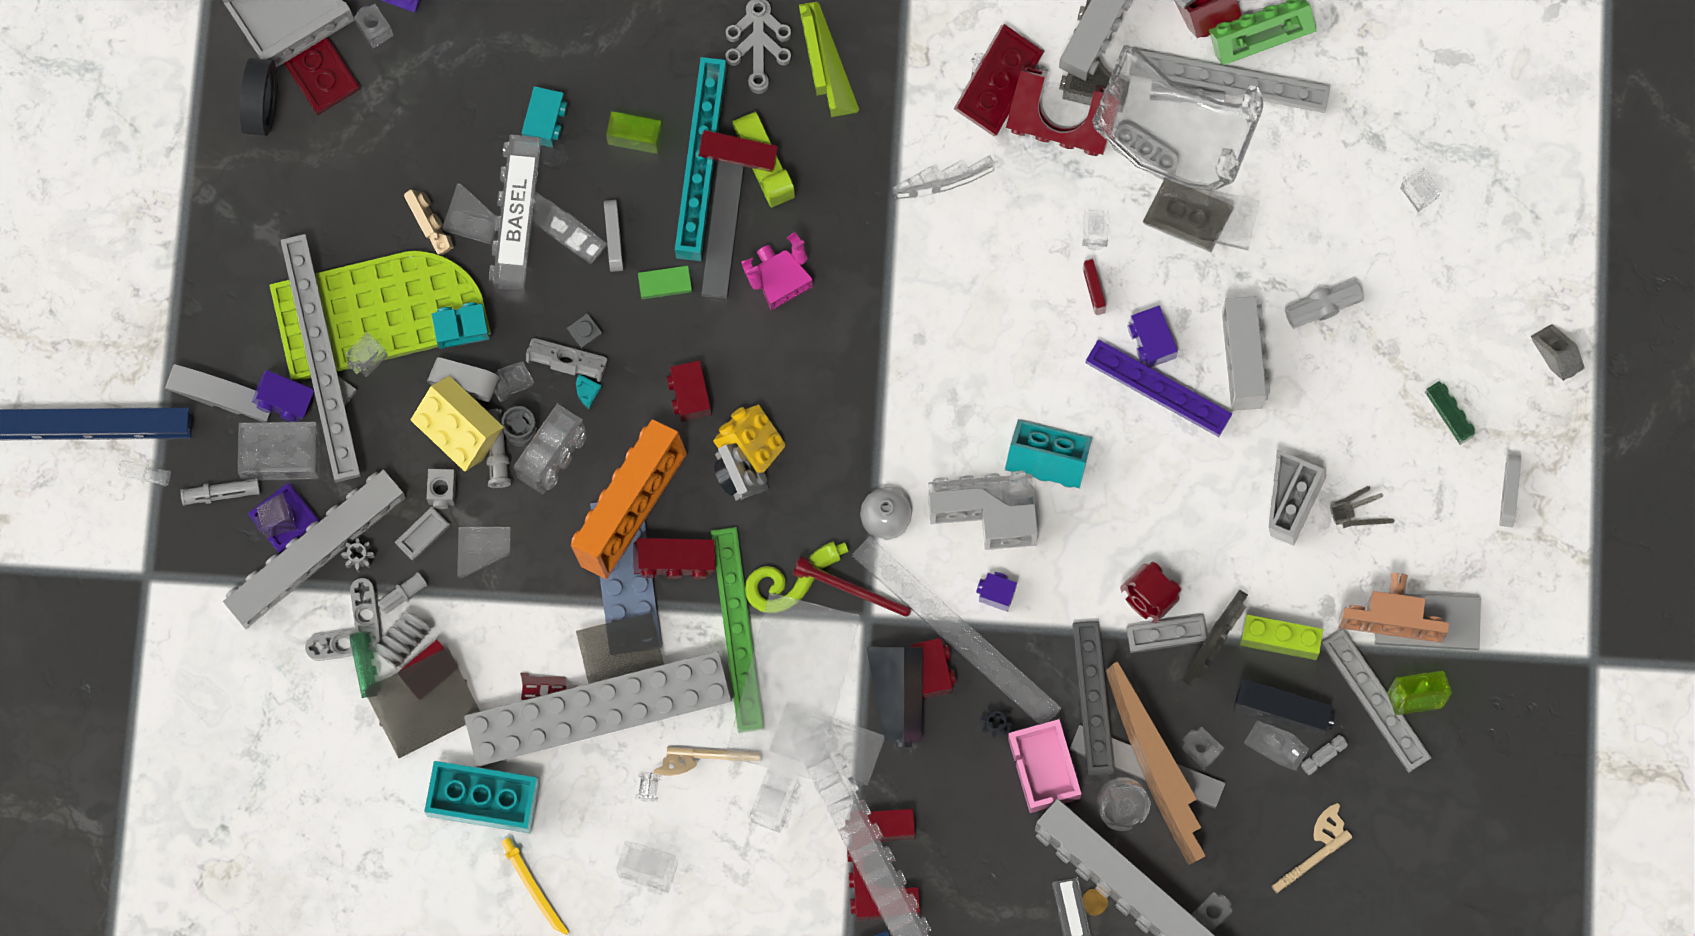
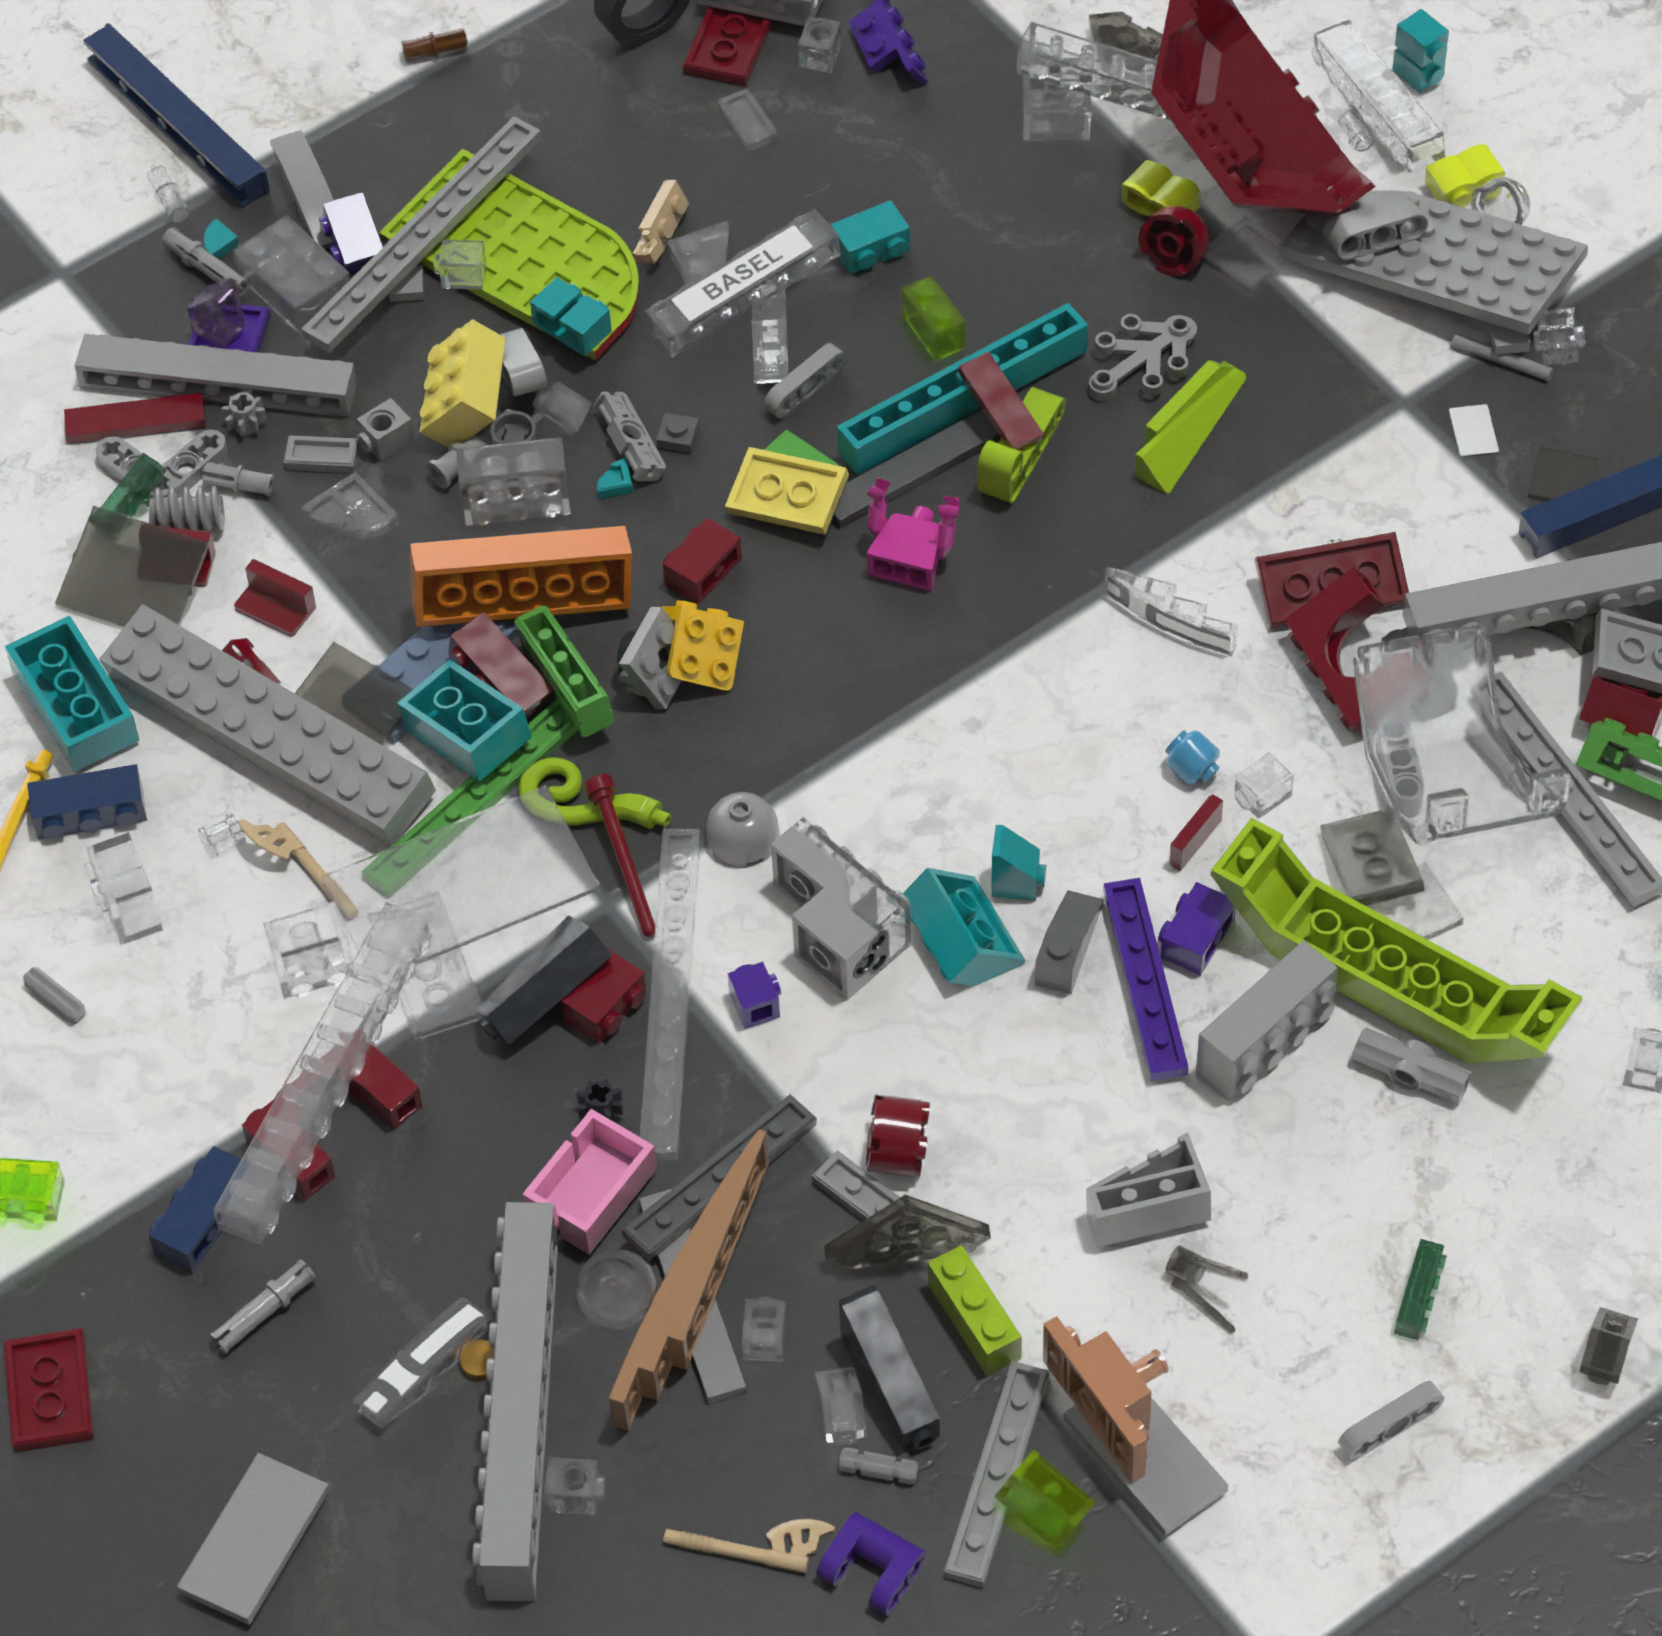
camera: 50 degrees right, 20 degrees down
(167, 236) = (433, 44): none -> reddish brown axle
(207, 470) = (219, 239): none -> teal tile
(301, 616) = (134, 418): none -> dark red tile
(389, 109) = (748, 120): none -> clear tile
(507, 638) = (276, 599): none -> dark red panel
(562, 842) = (87, 801): none -> dark blue brick
(684, 308) = (787, 490): none -> light yellow plate
(693, 602) = (464, 720): none -> teal brick
(707, 524) = (564, 671): none -> bright green brick
(1038, 396) = (1015, 866): none -> teal slope
(1046, 248) = (1193, 757): none -> dark azure head
(1101, 405) = (1067, 942): none -> dark grey slope
(1269, 262) = (1385, 962): none -> lime slope
(1372, 791) = (879, 1546): none -> dark purple connector

